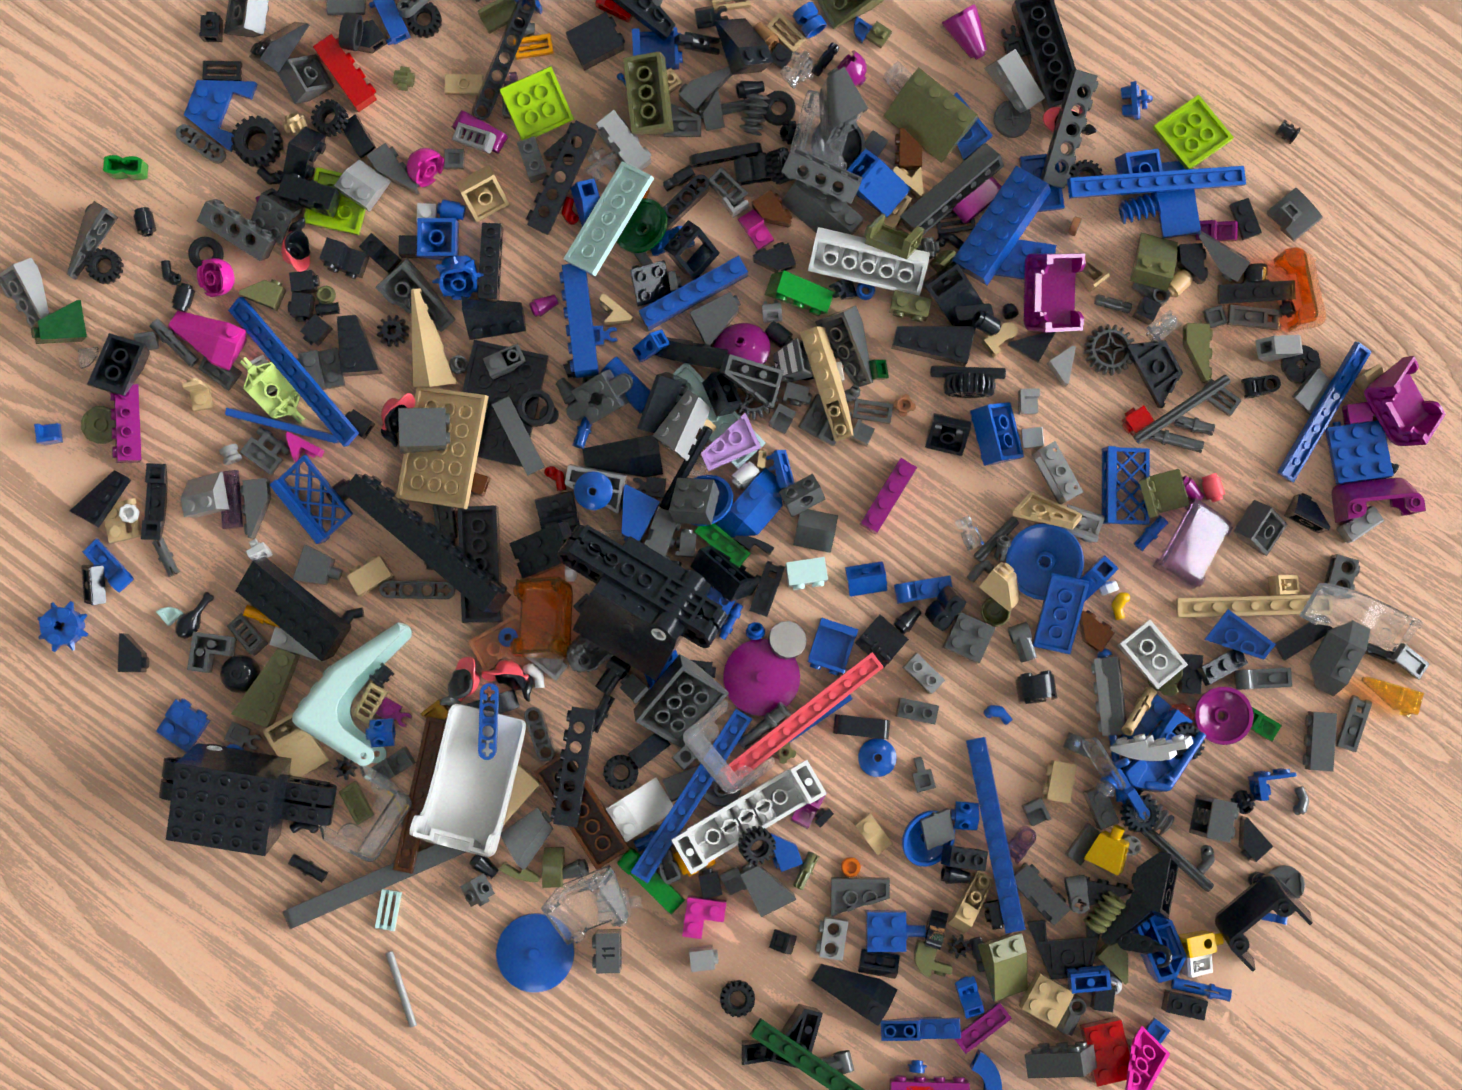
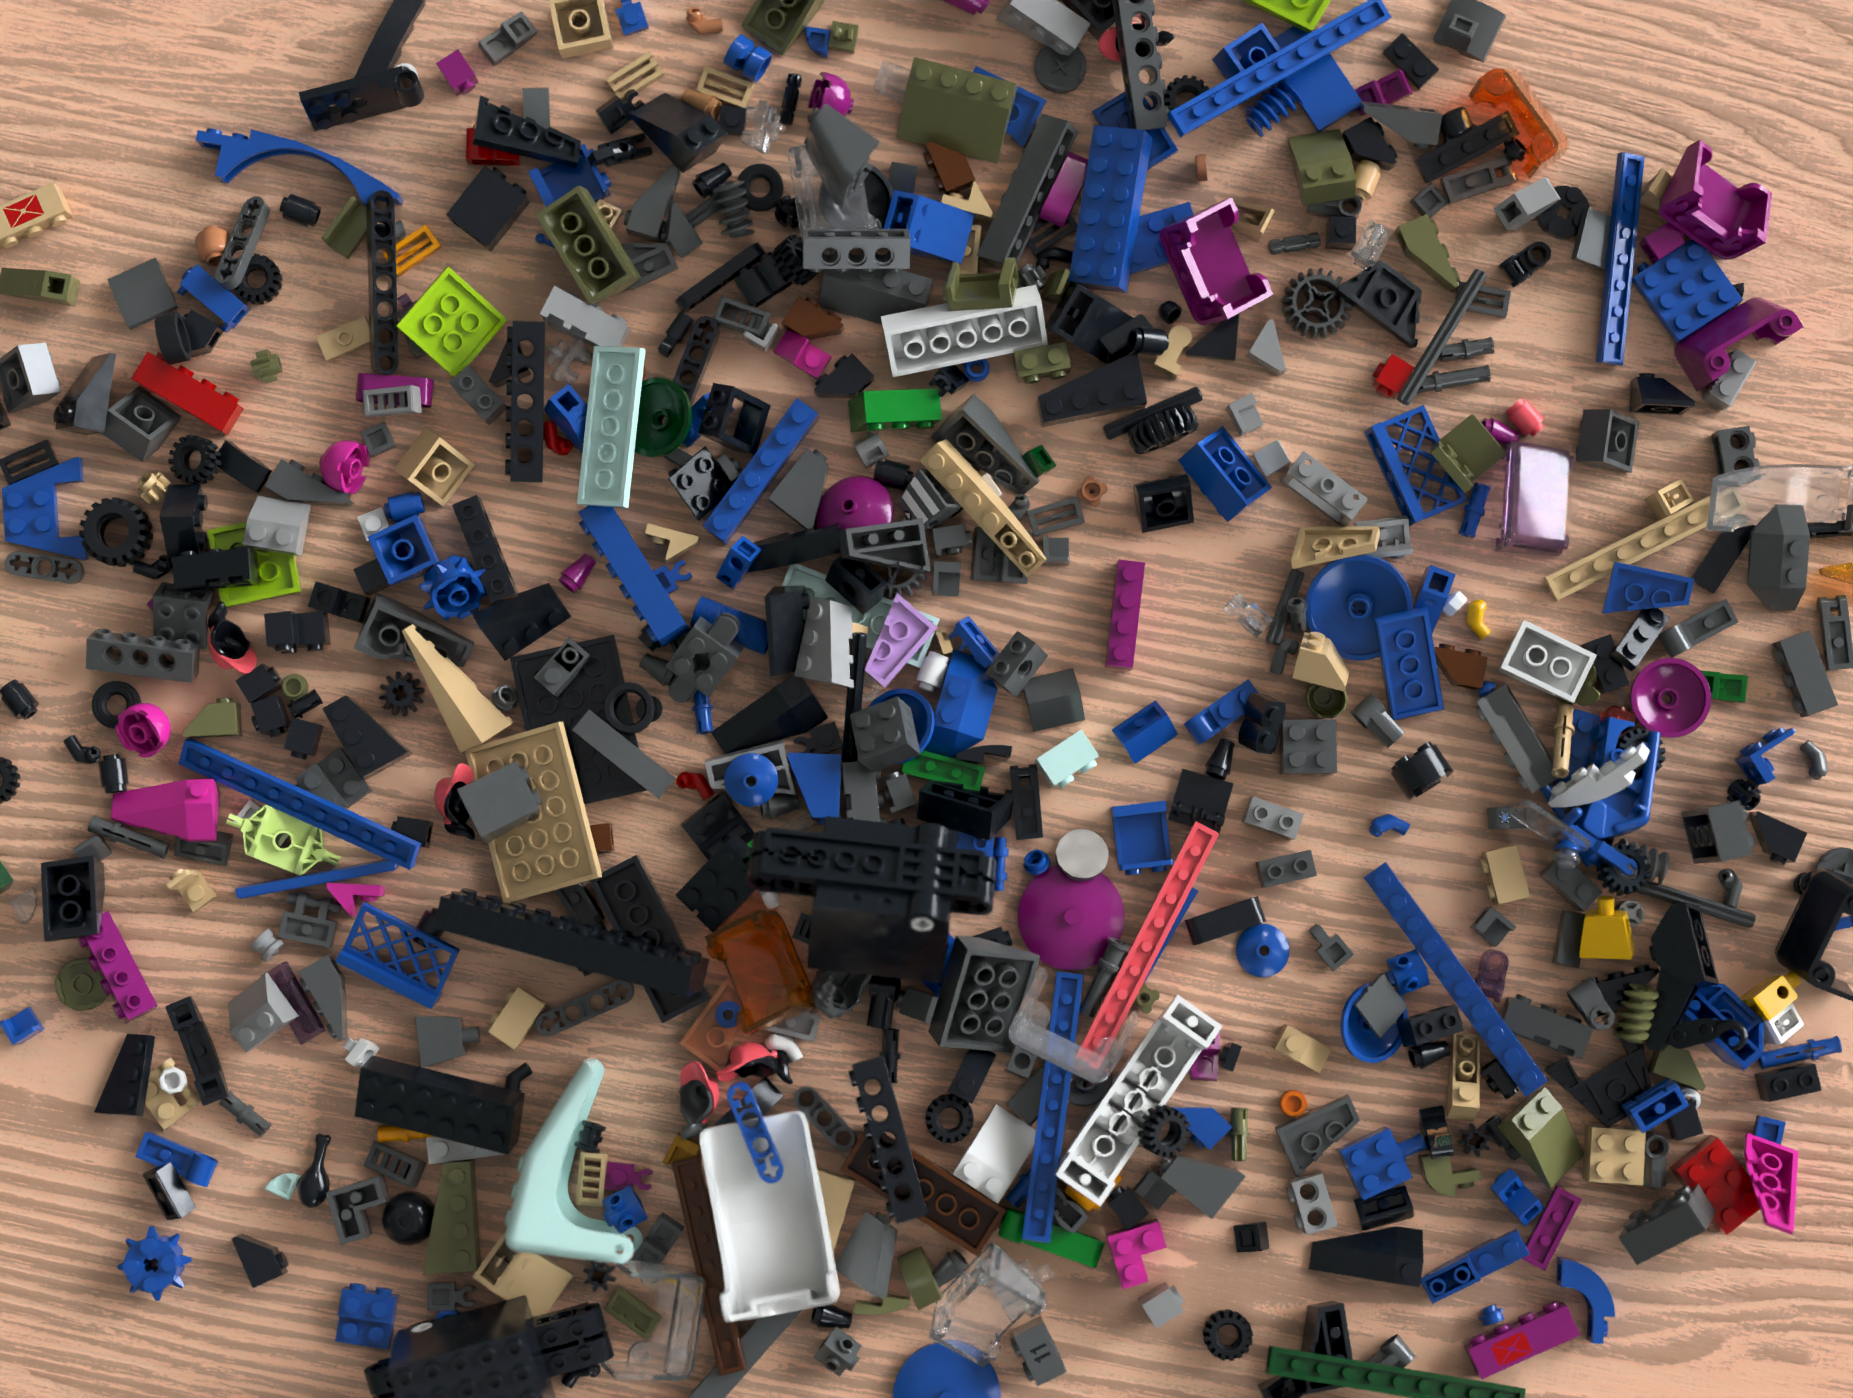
camera: 25 degrees left, 0 degrees up
(604, 516) = (779, 805): none -> dark grey cone

